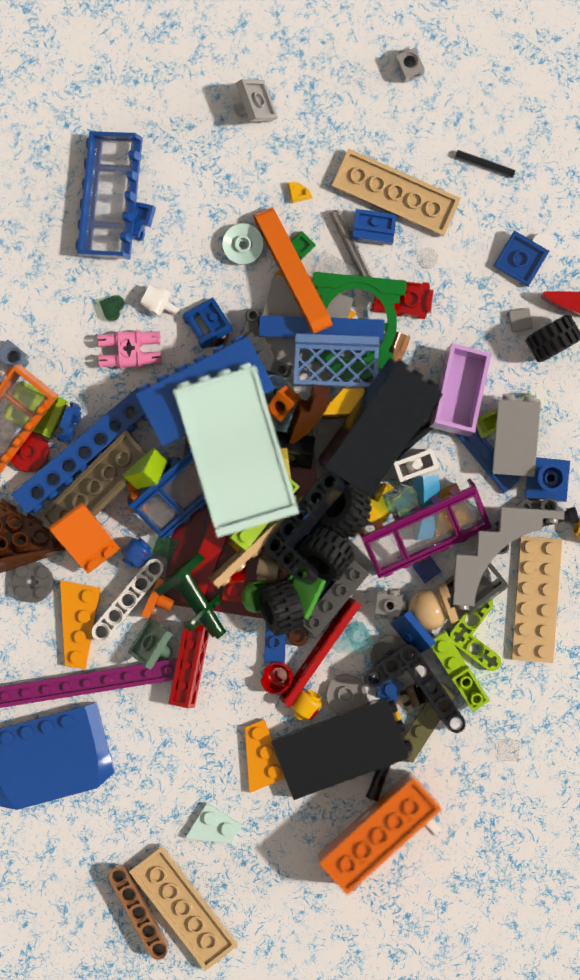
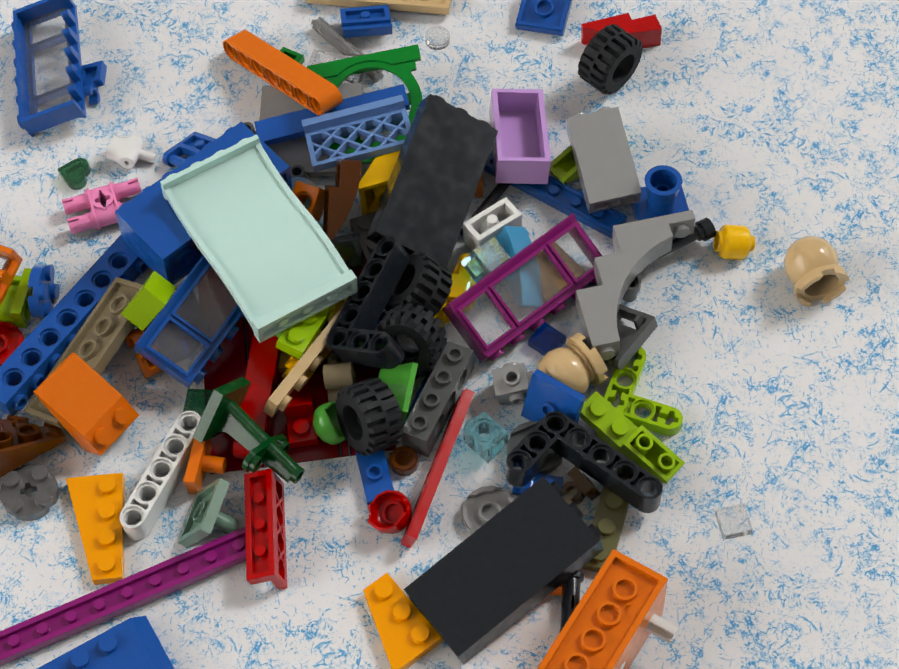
camera: 15 degrees left, 30 degrees down
(136, 553) = (160, 415): blue head -> none
(243, 233) = (217, 72): light aqua dish -> none
(298, 192) = (269, 17): yellow tile -> none
(307, 705) = (440, 535): yellow head -> none
(415, 302) = (432, 77): red piece -> none
(520, 320) = (565, 65): light grey tile -> none
(536, 599) = (700, 339): tan plate -> none

